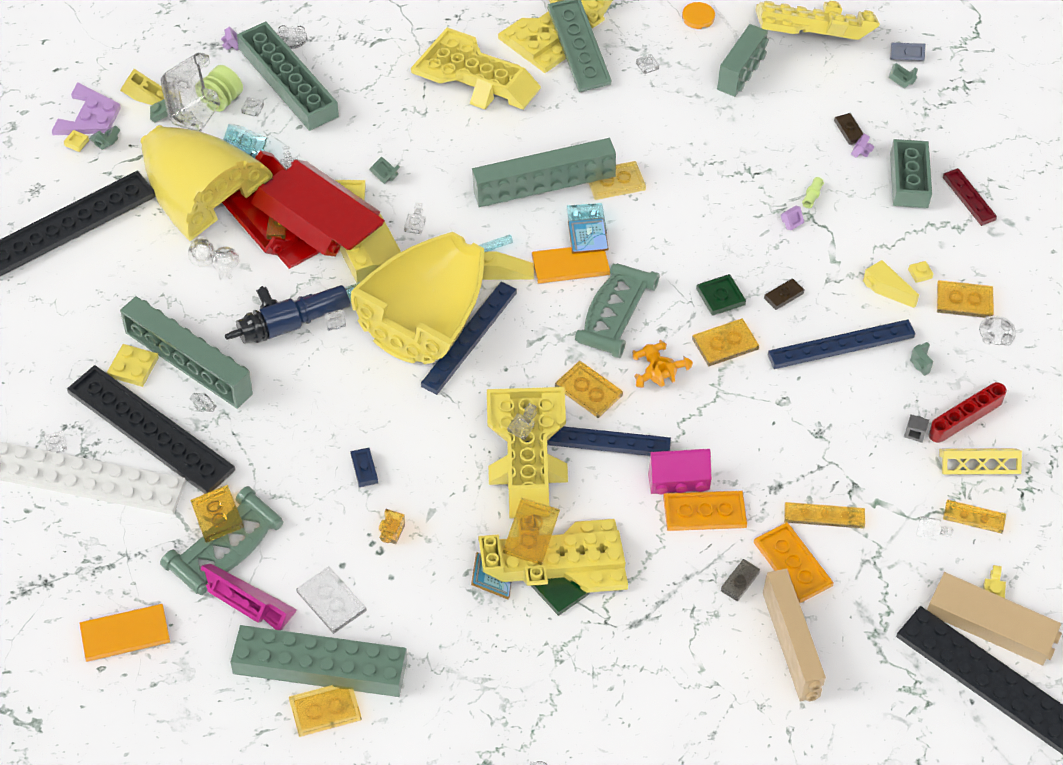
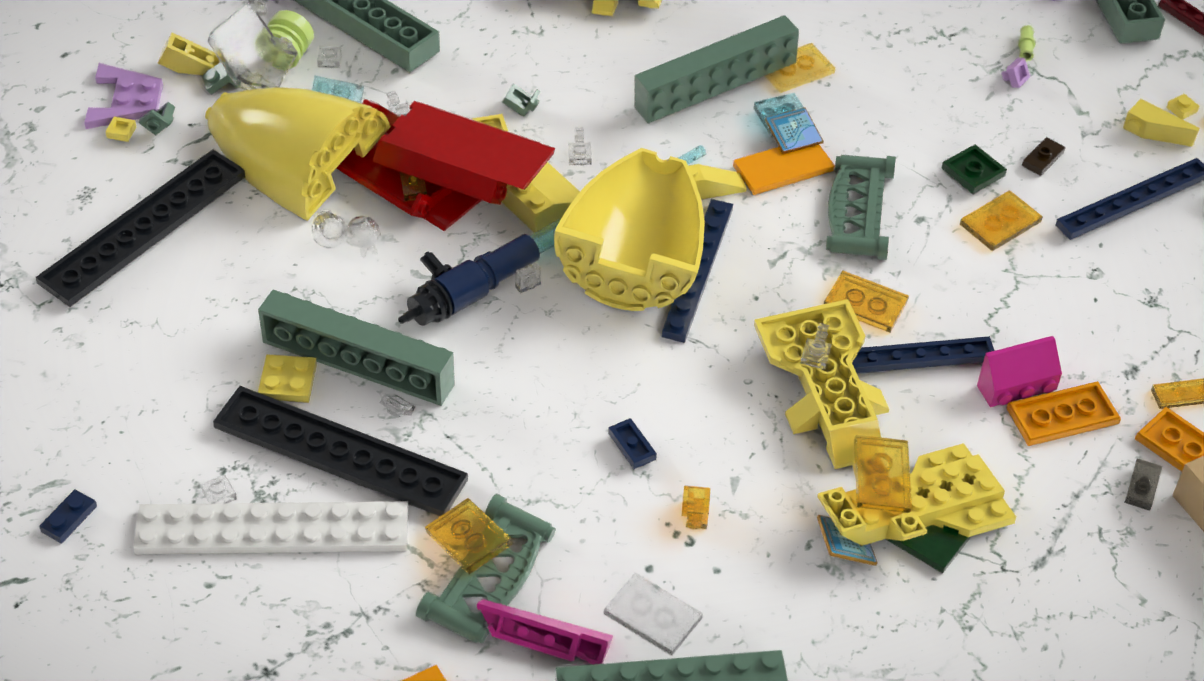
camera: 15 degrees left, 5 degrees down
(659, 366) = (941, 260): light orange piece -> none

